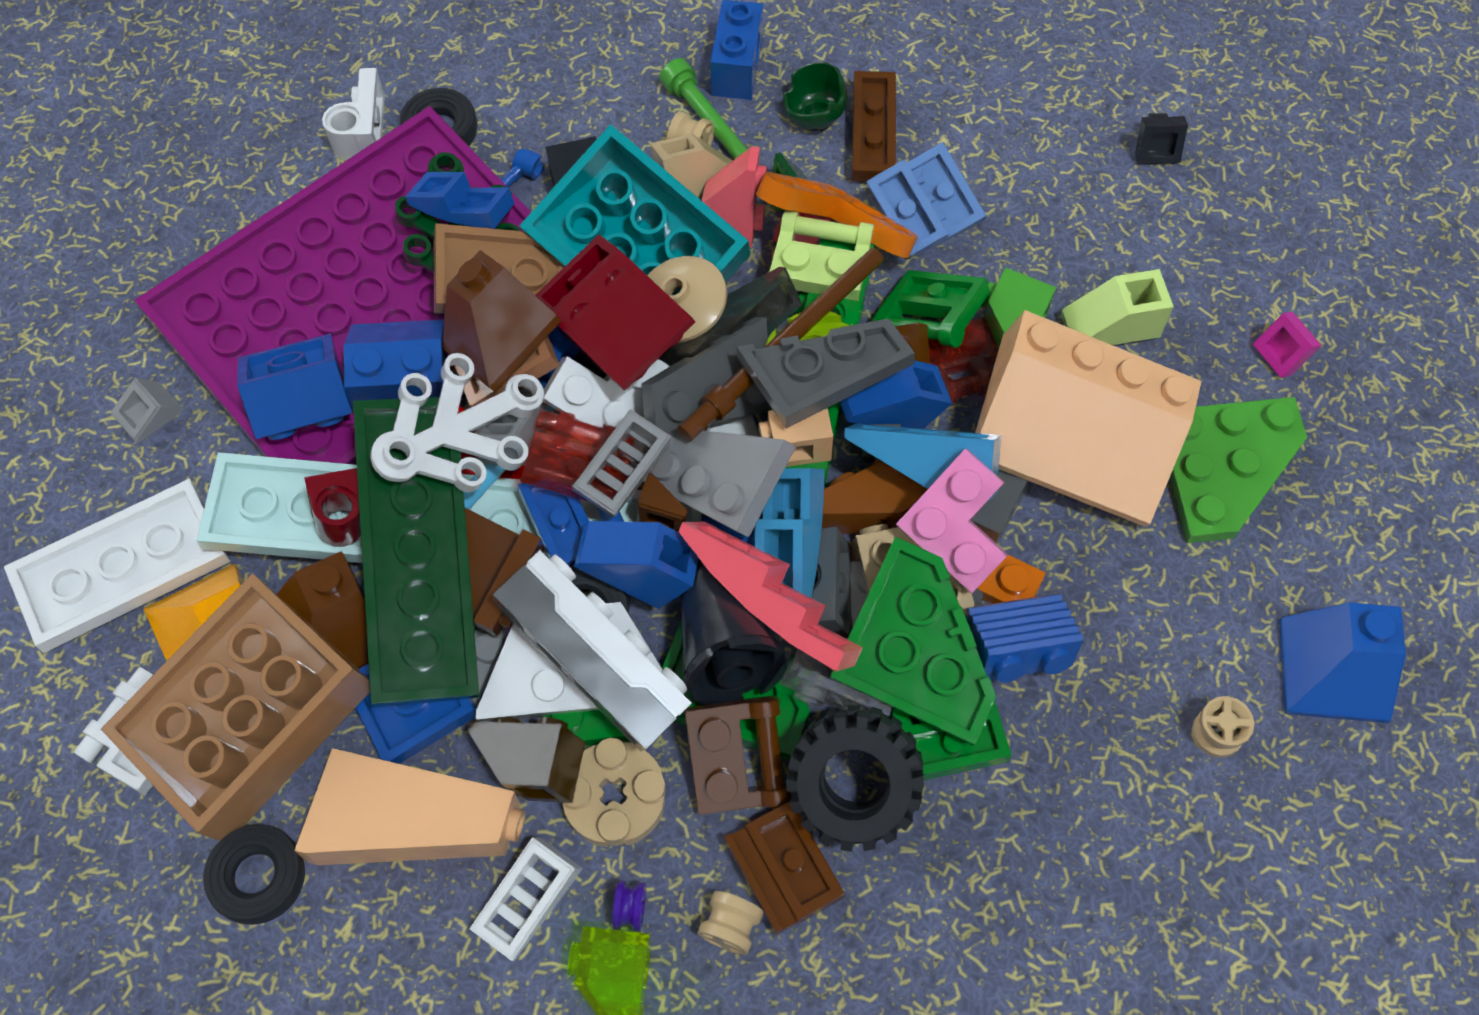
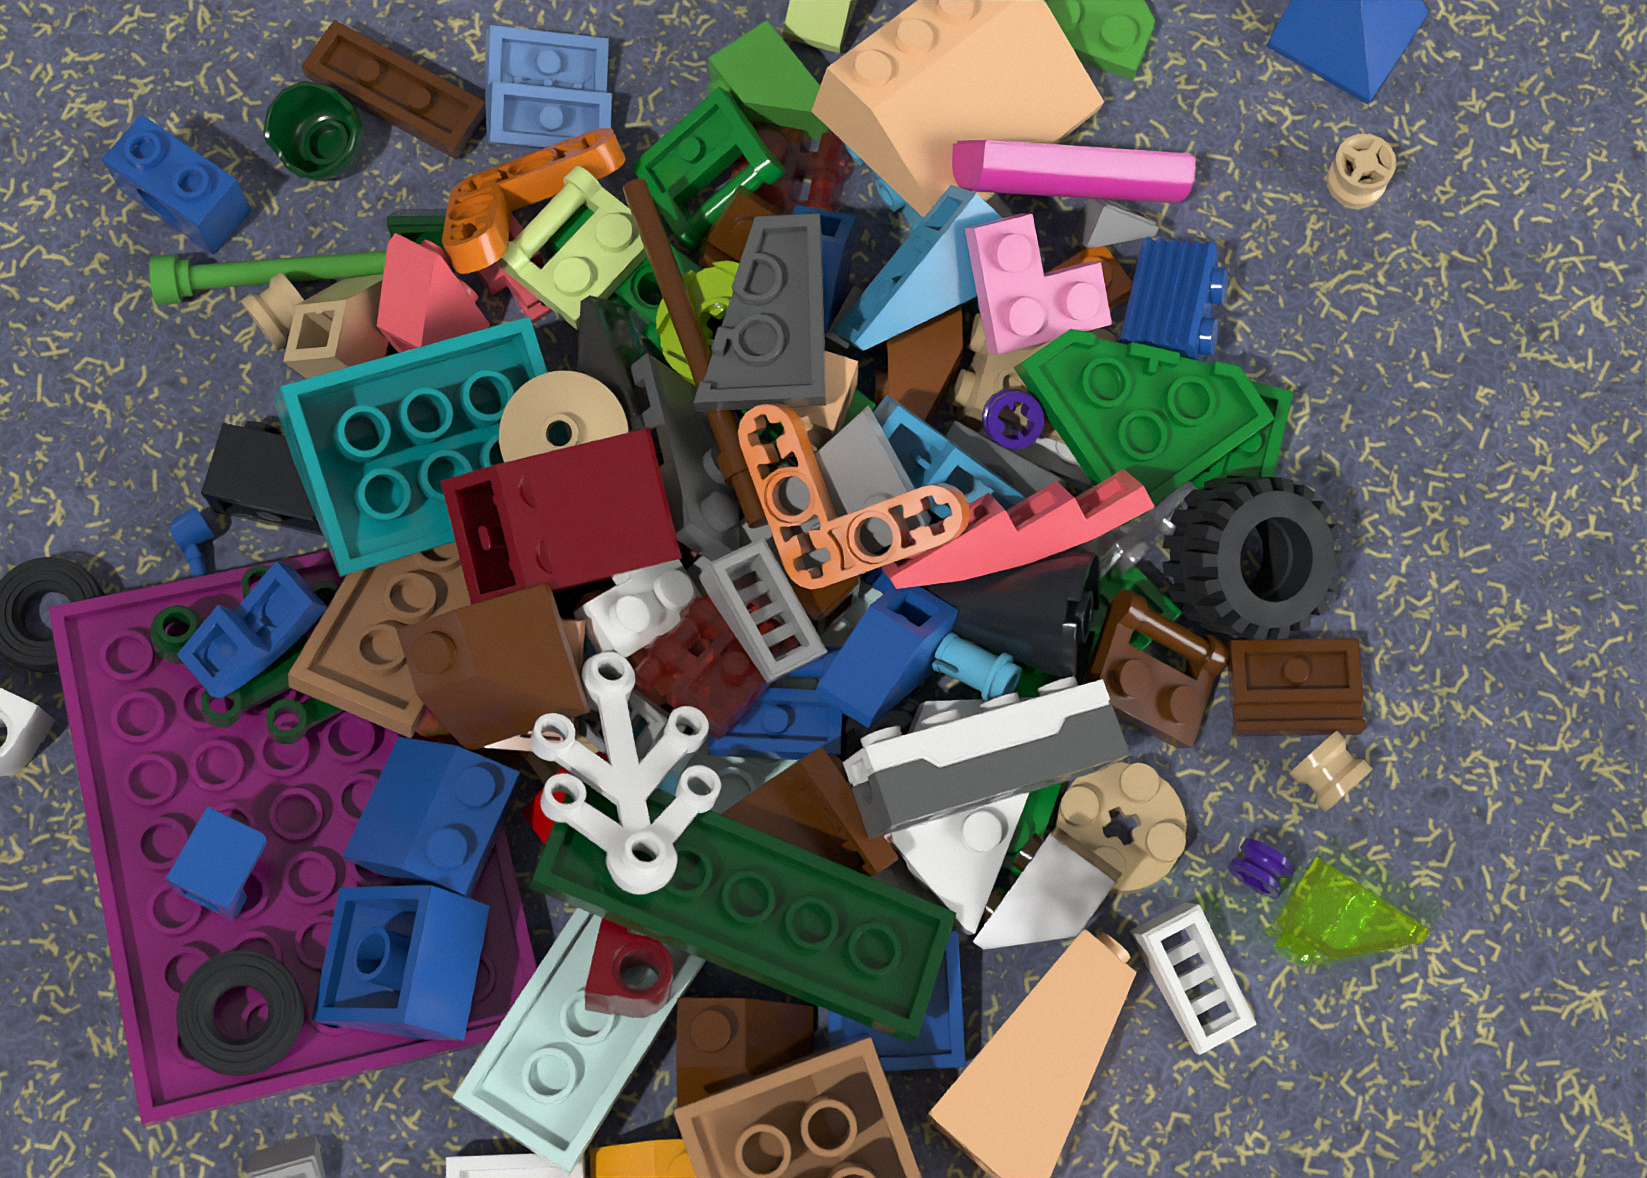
camera: 65 degrees left, 10 degrees up
(227, 341) = (210, 982): none -> black tyre
(304, 250) = (217, 863): none -> blue panel
(663, 623) = (977, 667): none -> medium azure pin
(698, 475) = (836, 534): none -> orange beam
(848, 550) = (1030, 409): none -> dark purple bush
(1064, 573) = (1110, 223): none -> light grey slope
(1074, 519) = (1072, 171): none -> brick

